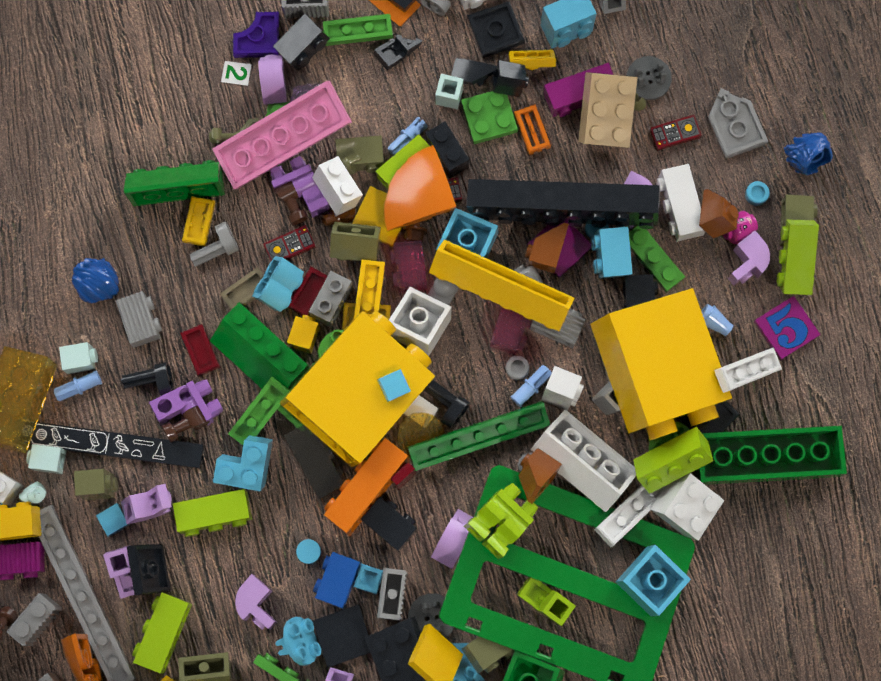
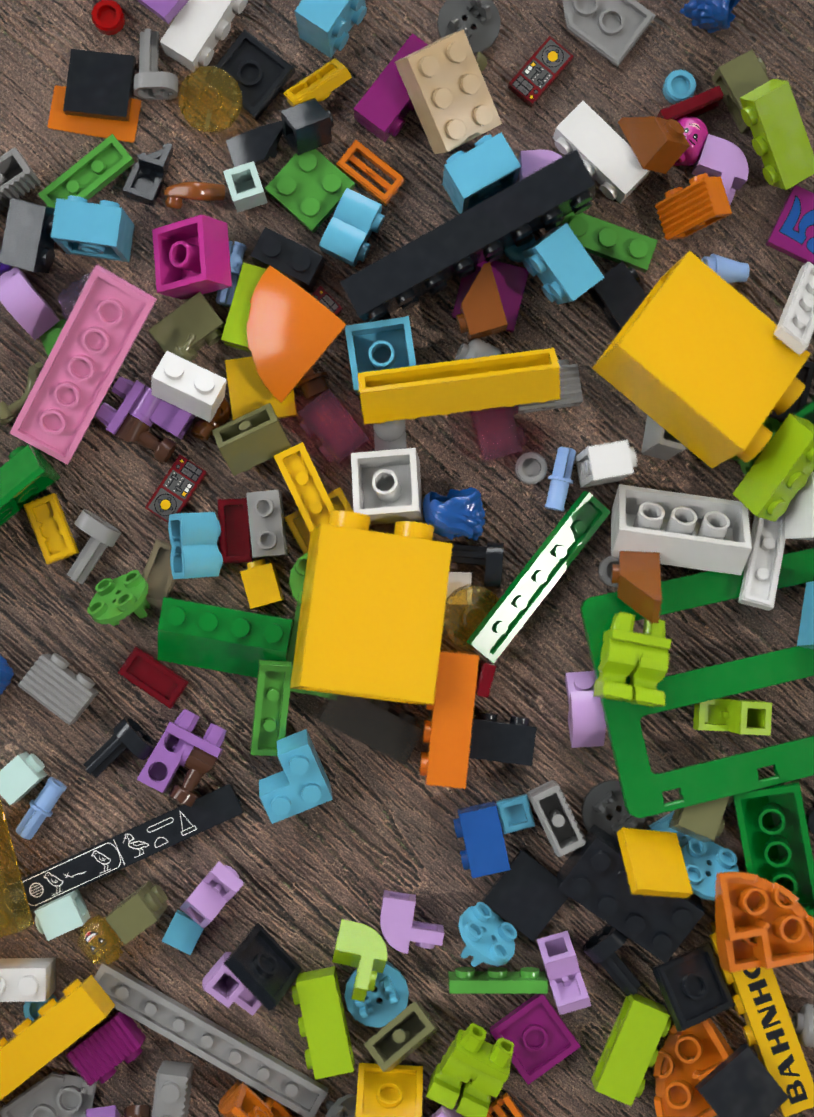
camera: 40 degrees left, 10 degrees up
(33, 493) = (73, 964): light aqua piece -> none
(59, 490) = (99, 941): none -> clear yellow head
(194, 635) = (390, 988): none -> medium azure plate
(211, 287) = (119, 598): none -> bright green plate
(212, 512) = (292, 854): lime brick -> none
(215, 598) = (361, 948): none -> lime brick
(308, 551) = (428, 826): medium azure tile -> none
(341, 61) = (92, 229): none -> medium azure brick
(389, 112) = (192, 257): none -> dark pink brick
(394, 385) = (414, 588): medium azure tile -> none
(416, 75) = (193, 190): none -> dark orange arm
(450, 364) = (455, 514): none -> blue hair
(462, 29) = (210, 99): none -> clear yellow tile
(498, 154) = (351, 228): none -> medium azure brick
(597, 165) = (480, 172): none -> medium azure brick
(717, 268) = (693, 207): none -> orange brick
(757, 209) = (694, 105): none -> dark red tile

